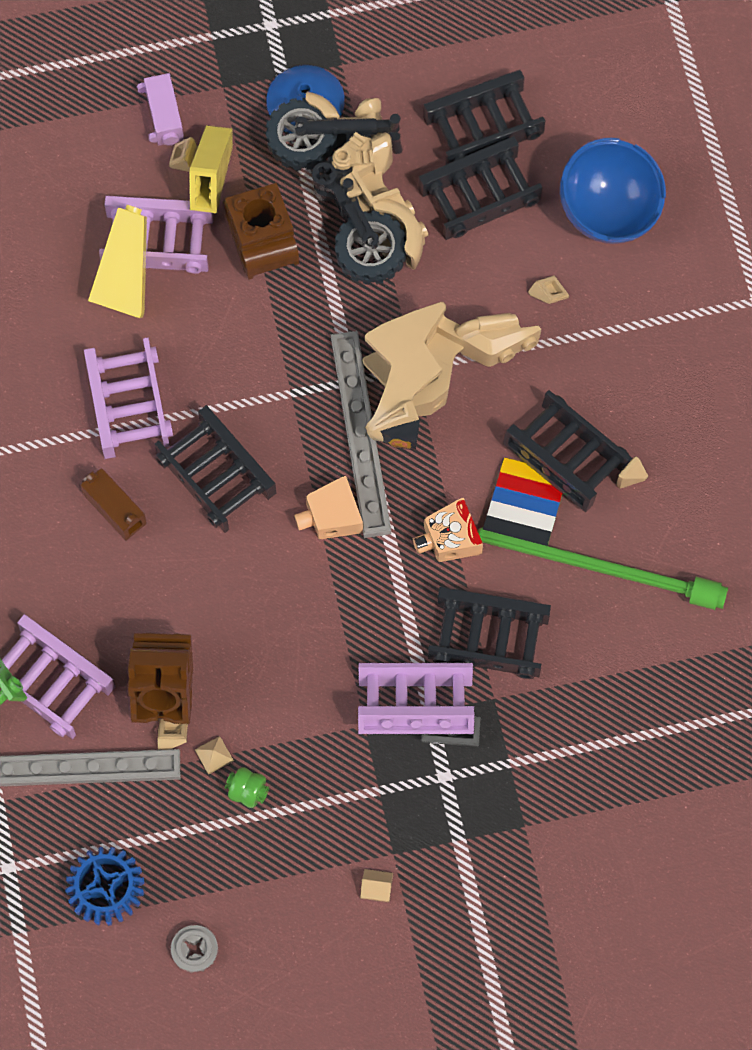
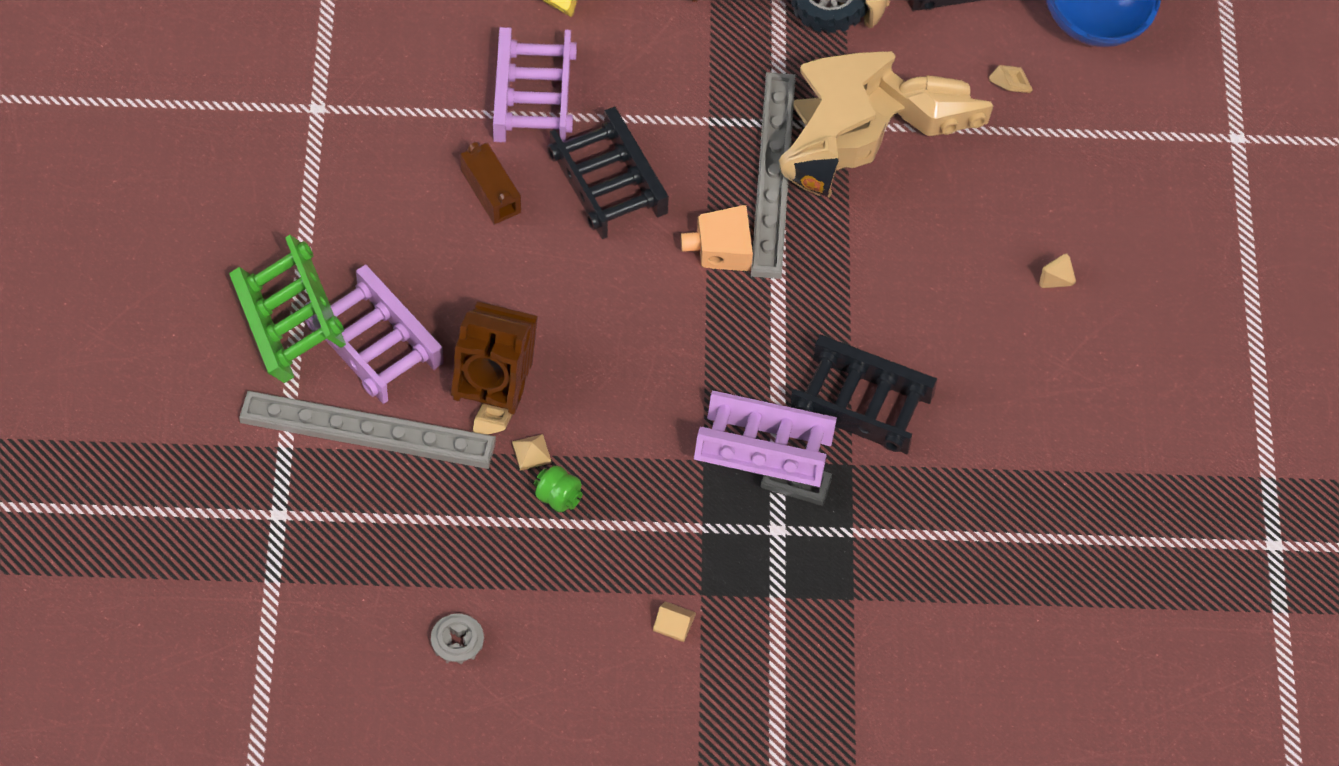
camera: 10 degrees right, 10 degrees down
(114, 880) = (401, 544): blue gear -> none
(450, 533) = (845, 288): torso -> none
(523, 521) = (931, 290): flag -> none
(562, 474) = (973, 250): black fence -> none

